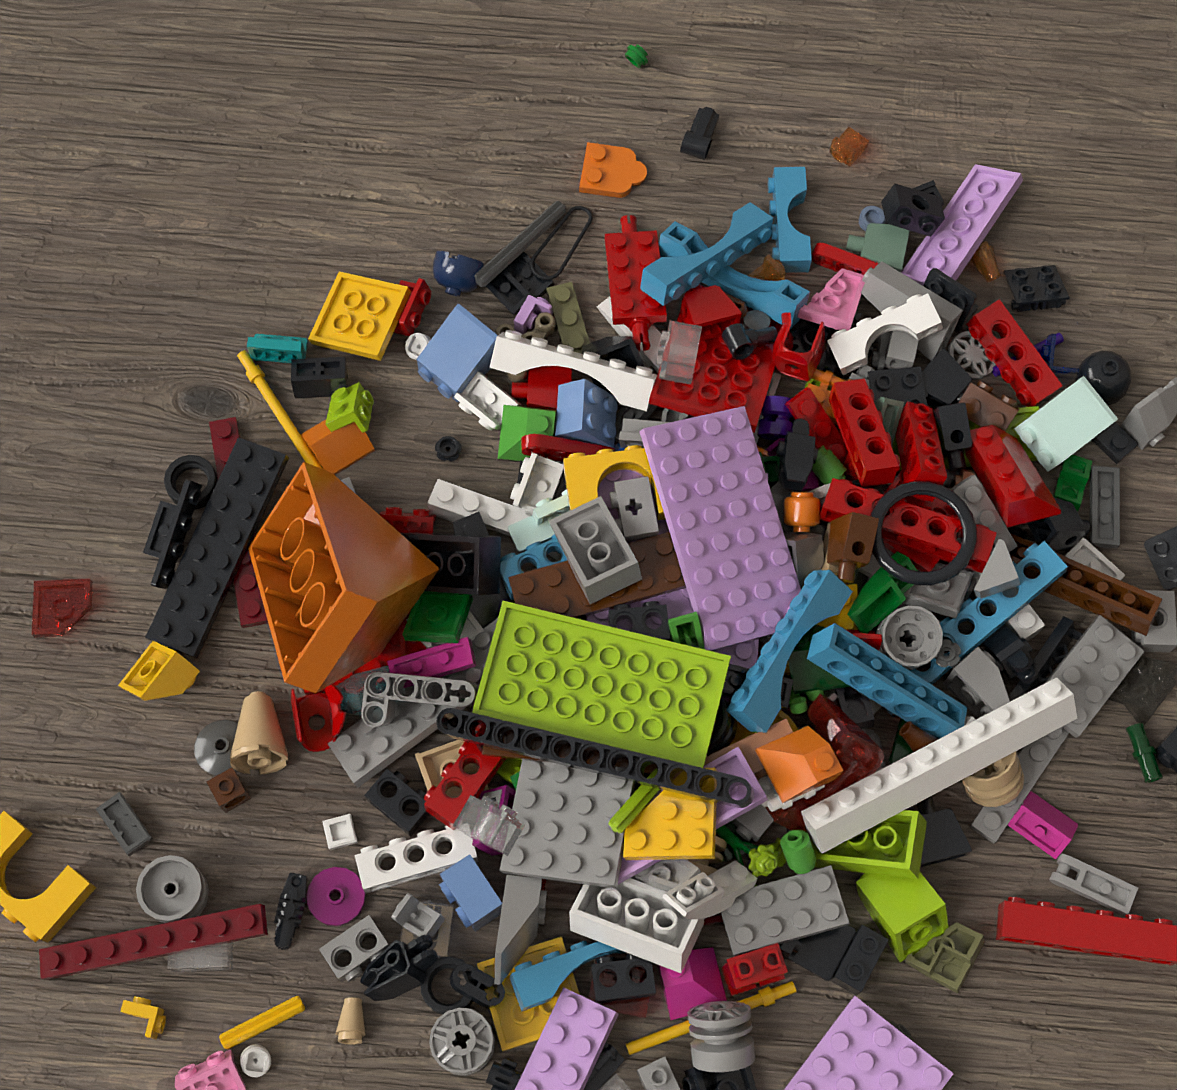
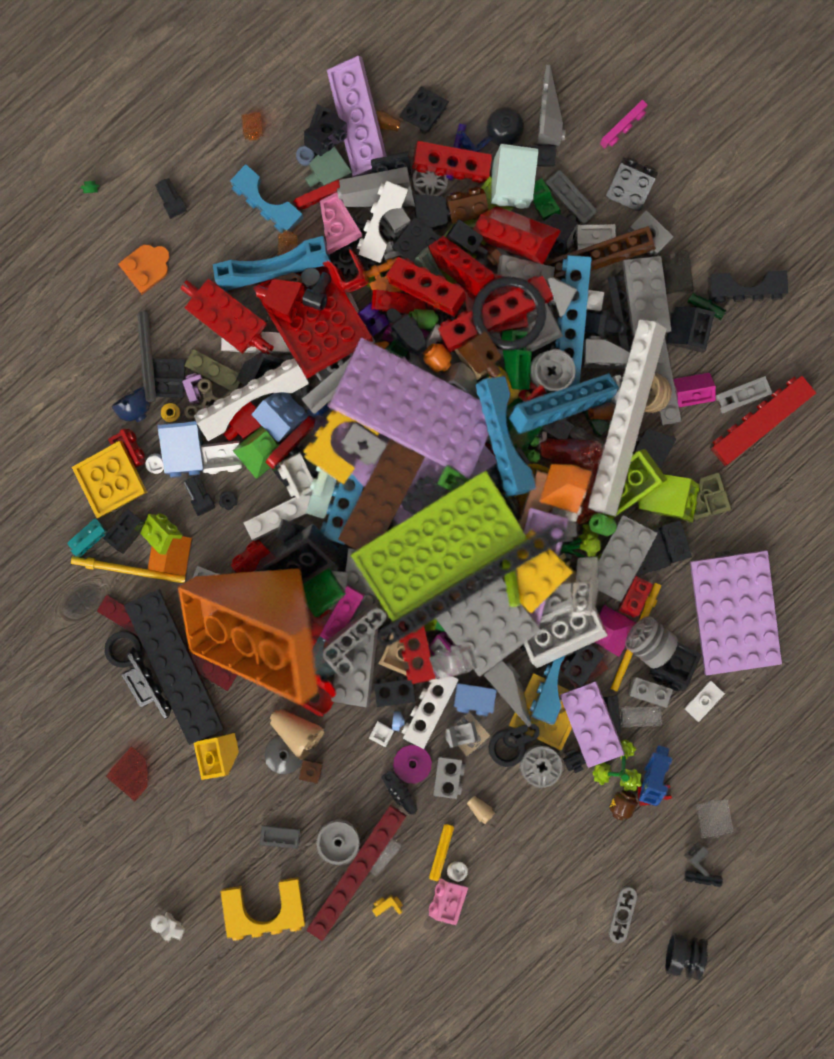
camera: 50 degrees left, 15 degrees up
(369, 834) = (398, 721): none -> light blue tile
(399, 968) = (478, 765): black hinge -> none
(423, 421) = (200, 498): none -> black piece
(492, 320) = (172, 418): none -> yellow plate
(550, 237) = (174, 330): black piece -> none
(596, 550) = (368, 485): light grey slope -> none
(673, 276) = (248, 299): dark azure arch -> none
(680, 352) = (294, 336): clear brick -> none
(951, 660) = (580, 357): dark grey plate -> none
(1103, 756) = (690, 328): none -> black slope

